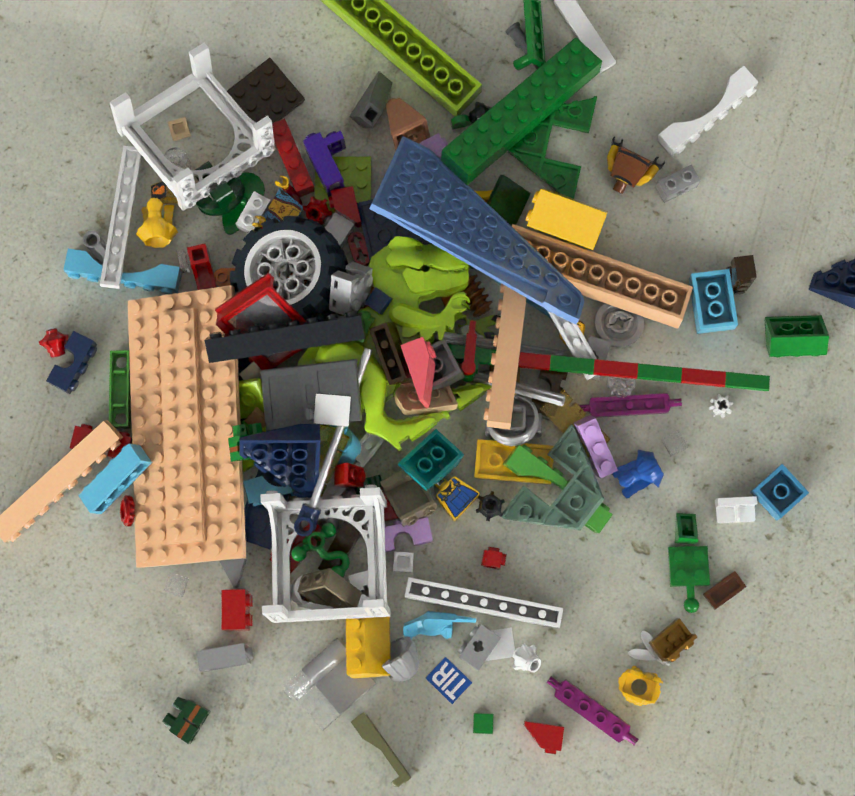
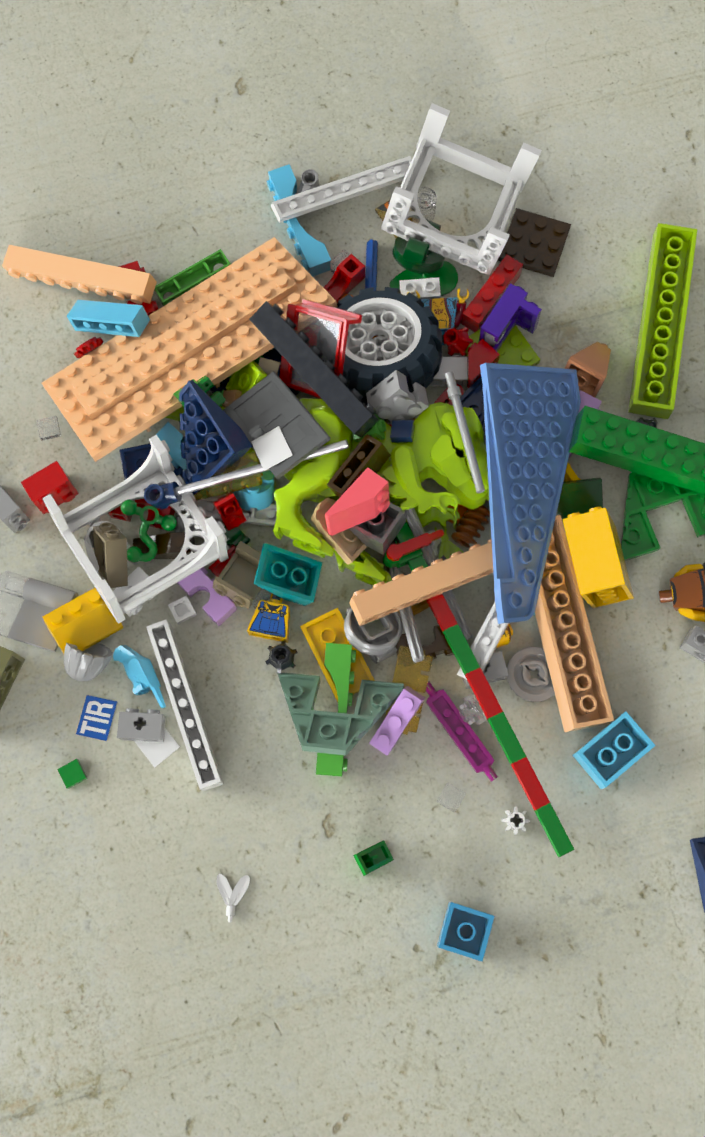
camera: 60 degrees right, 5 degrees down
(54, 342) = (201, 204): red rock -> none
(67, 378) = (207, 231): dark blue arch -> none
(157, 230) = (350, 221): yellow piece -> none
(179, 129) = (455, 190): tan plate -> none
(202, 238) = (371, 264): none -> blue axle
(234, 570) = (87, 468): light grey slope -> none
(372, 102) = (592, 330): dark grey slope -> none
(376, 242) = (454, 394): none -> light grey bar
(460, 121) = (627, 413): green tile -> none
(493, 558) = (233, 690): red plate -> none
(526, 658) = (154, 776): white rock -> none
(546, 736) = (91, 840): red slope -> none
(592, 711) = (141, 872): magenta plate -> none
(640, 472) = (402, 780): blue piece -> none
(651, 680) = (174, 908): yellow piece -> none
(672, 641) = (253, 910): pearl gold bracket -> none
(689, 568) = (335, 885): green plate -> none
(724, 590) = (335, 934): reddish brown tile -> none
(735, 509) = (422, 897): white panel -> none
(742, 273) = (658, 760): dark brown arch -> none
(796, 336) = (634, 855): green slope -> none

